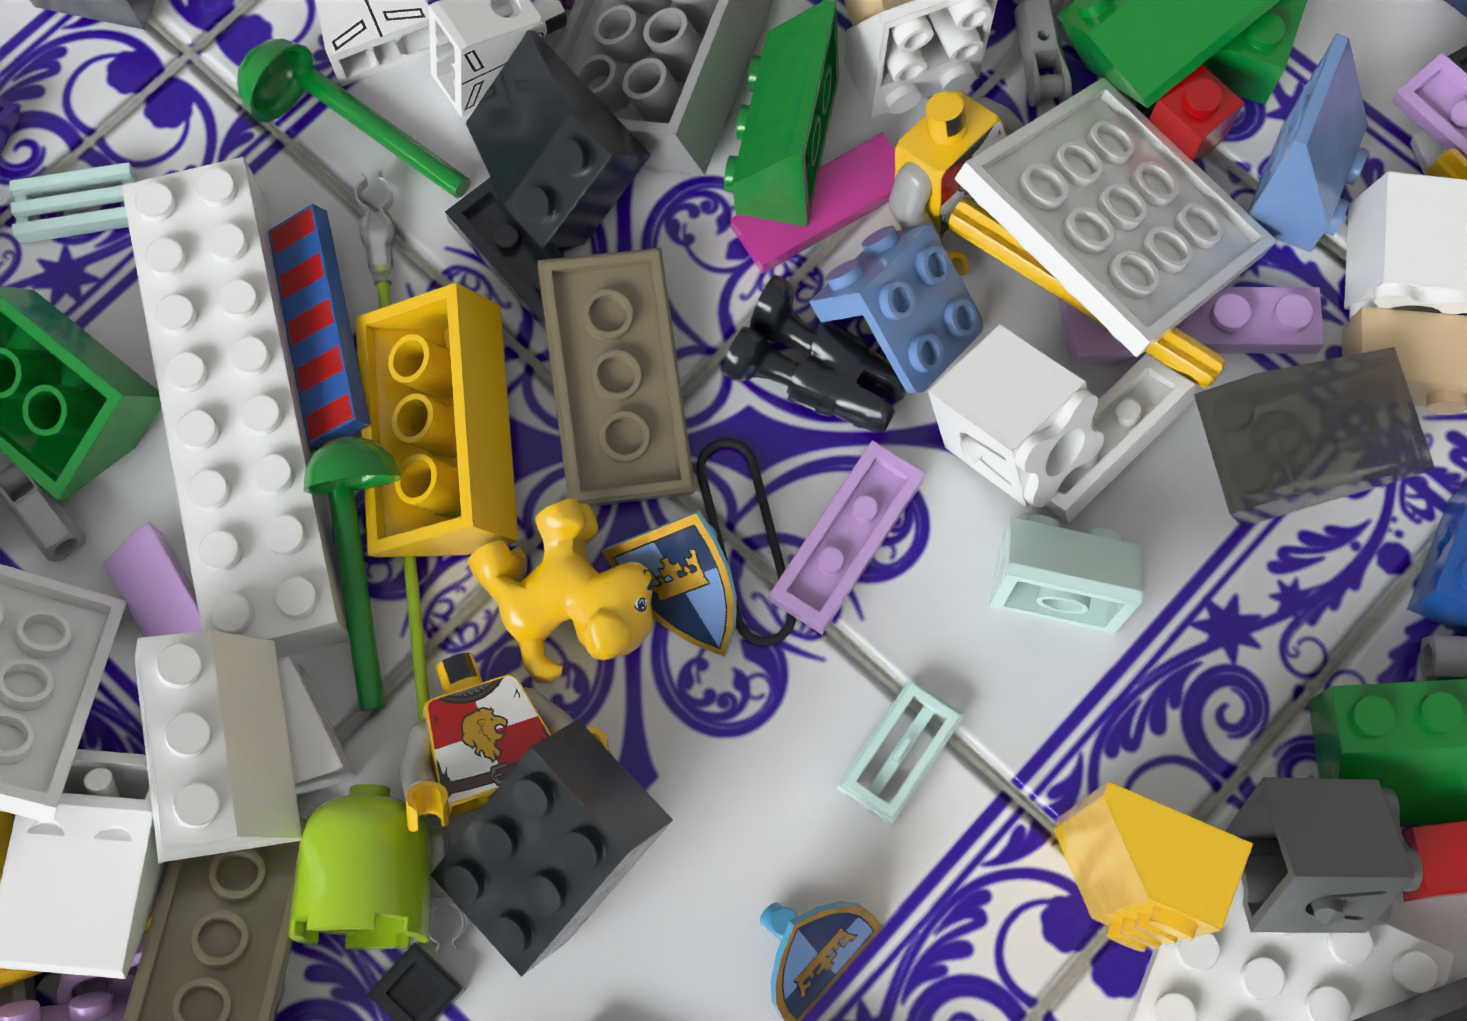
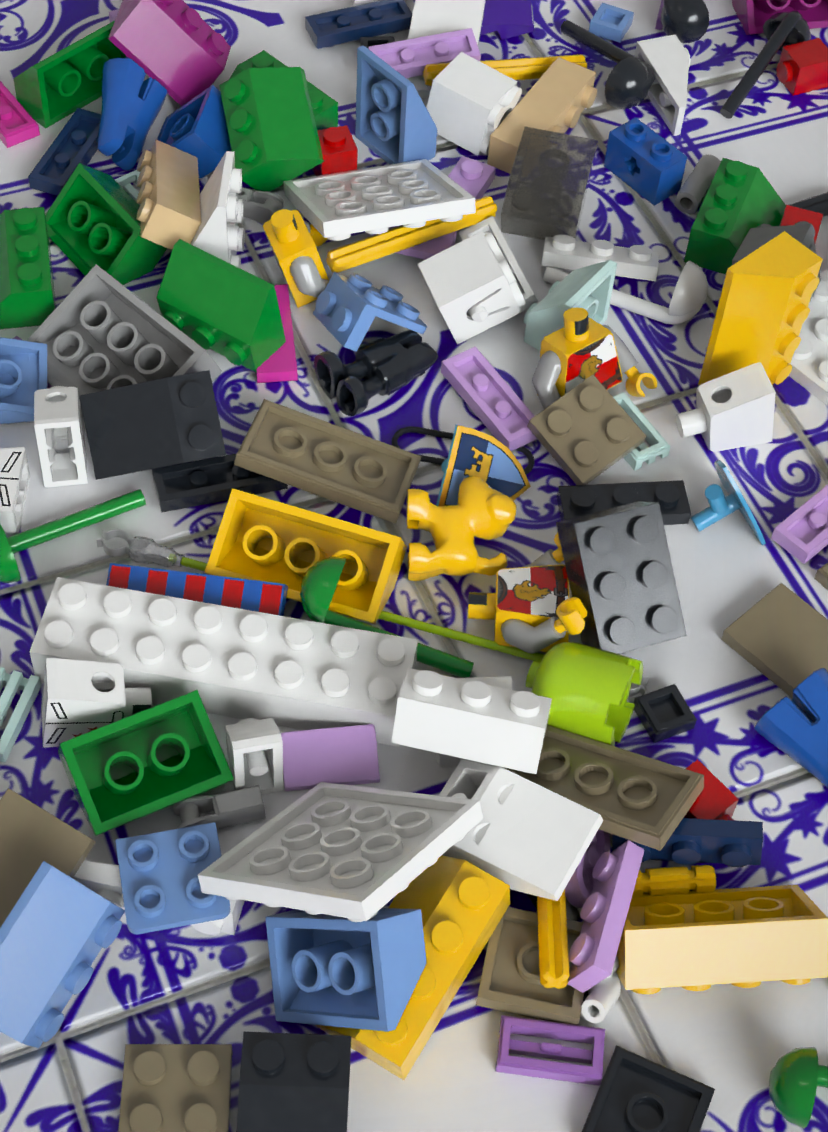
camera: 70 degrees left, 20 degrees down
(94, 282) = (85, 697): none -> white torso
(103, 500) = (255, 754): none -> white slope
(754, 798) = (587, 499): none -> black plate
(838, 693) = (586, 431): none -> dark tan plate
(958, 630) = (584, 350): none -> torso
(999, 911) = (732, 410): none -> white torso
(1189, 735) = (685, 303): none -> white piece
(1221, 576) = (632, 262): none -> white plate

